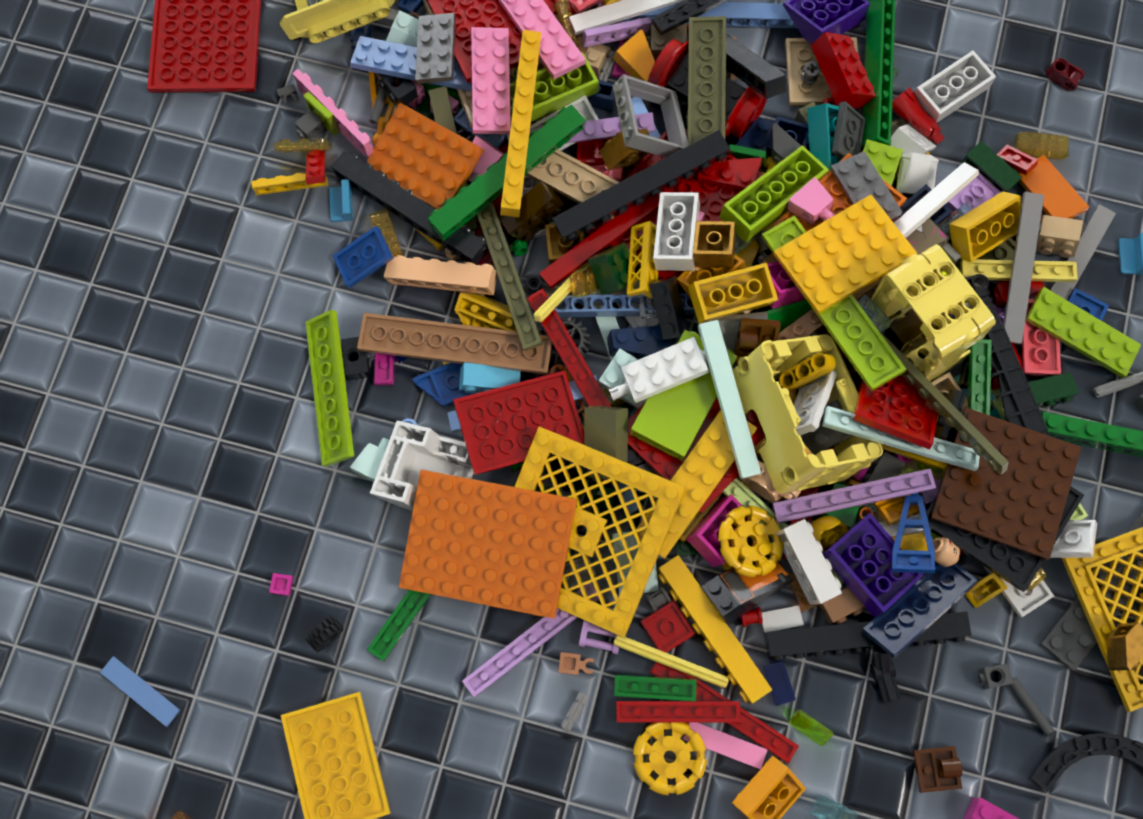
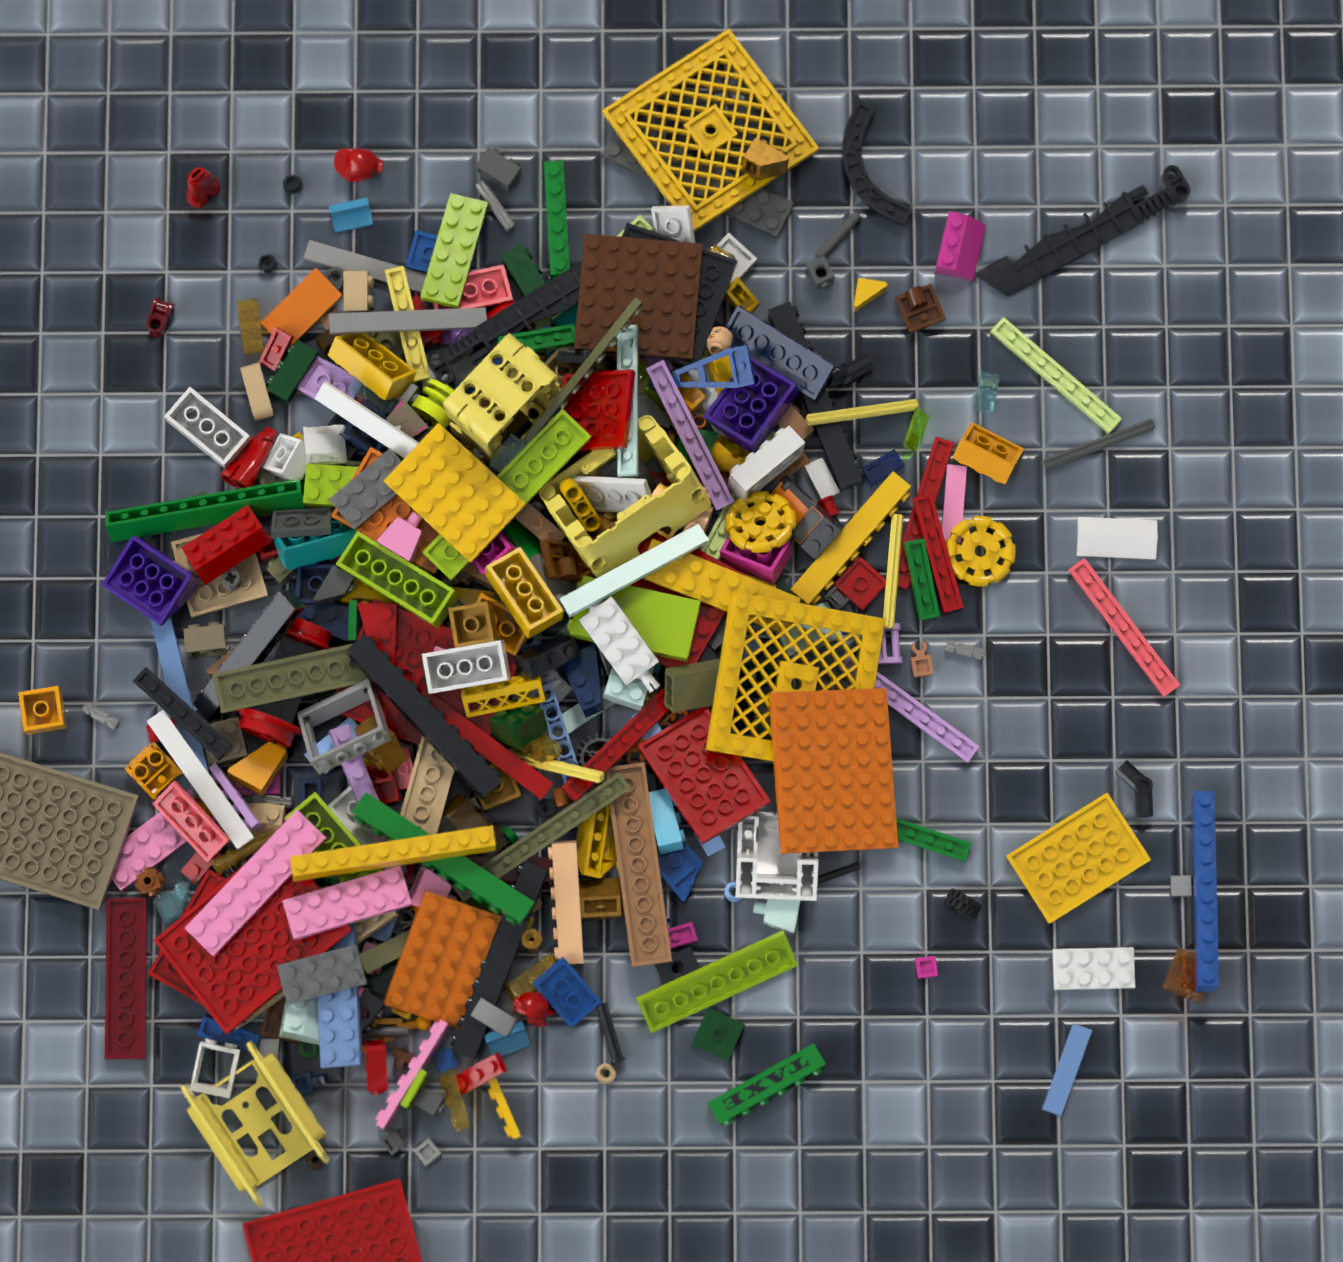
camera: 105 degrees left, 5 degrees up
(224, 408) = (766, 1084): none -> green brick
(225, 747) = (1093, 968): none -> white plate
(269, 117) = (427, 1152): none -> light grey tile
(284, 270) = (610, 1068): none -> tan plate
(285, 379) = (718, 1034): none -> dark green plate
(316, 287) = (609, 1033): none -> black axle
(339, 146) = (445, 1060): none -> blue tile
(353, 88) = (376, 1066): none -> red slope
(355, 113) = (402, 1057): none -> reddish brown tile
(356, 222) = (534, 1006): none -> red hair
(358, 187) = (493, 1017): none -> light grey slope
(395, 526) = (838, 872): none -> black bar
(415, 233) = (534, 946): none -> pearl gold piece
(436, 304) = (600, 899): none -> pearl gold slope
(762, 37) = (206, 640): none -> dark tan brick
(840, 676) = (862, 412): none -> light yellow axle
(966, 718) = (867, 291): none -> yellow slope
(970, 135) = (257, 391): none -> tan beam
(1102, 170) = (267, 268): none -> black plate

